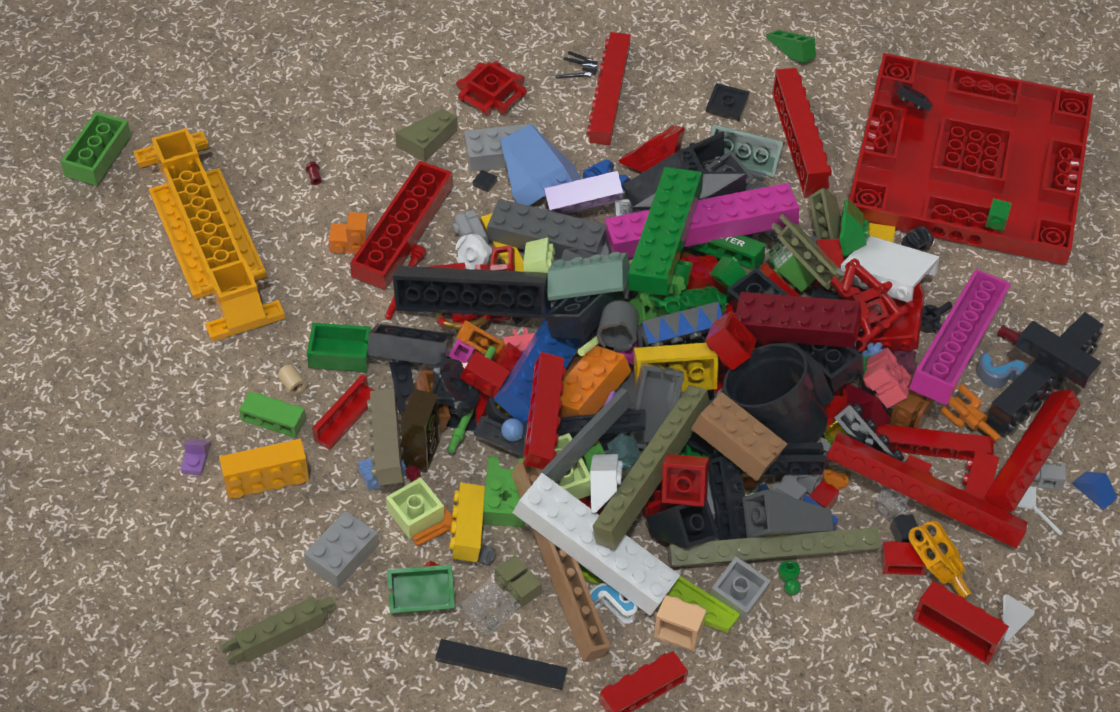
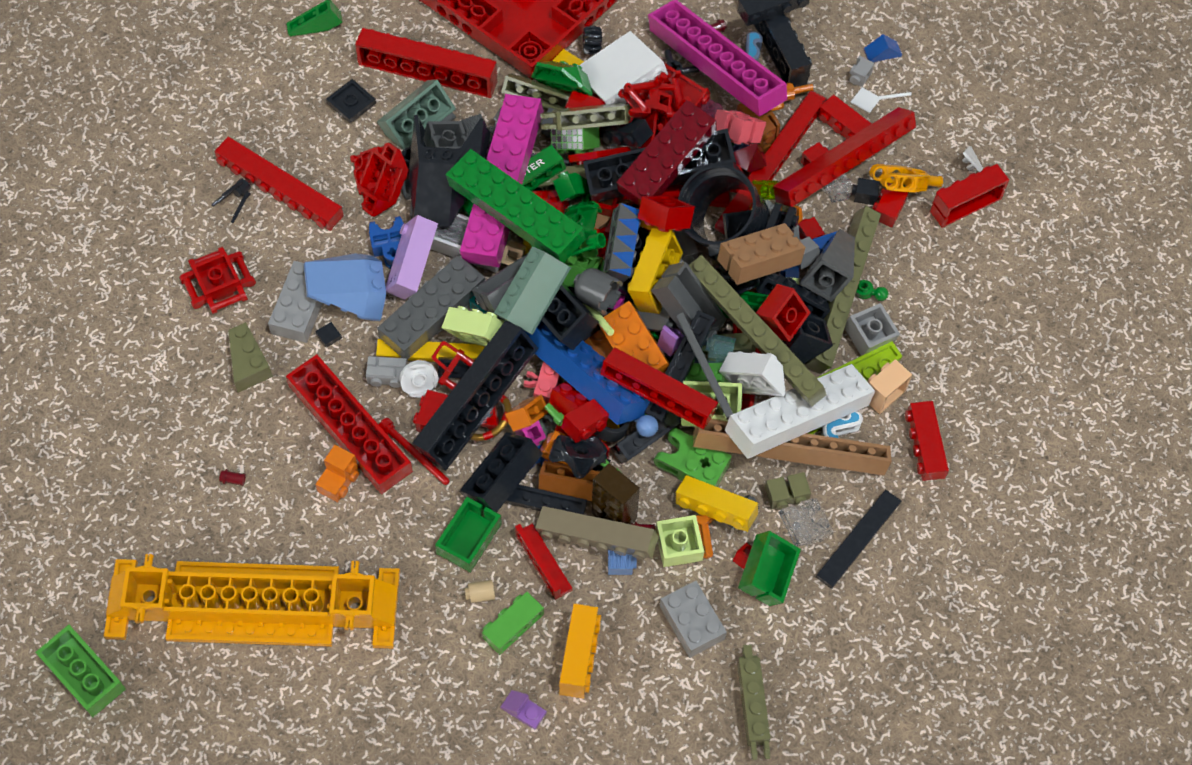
camera: 65 degrees left, 10 degrees up
(864, 429) = (774, 168): black brick -> none
(1033, 450) = (840, 70): red brick -> none

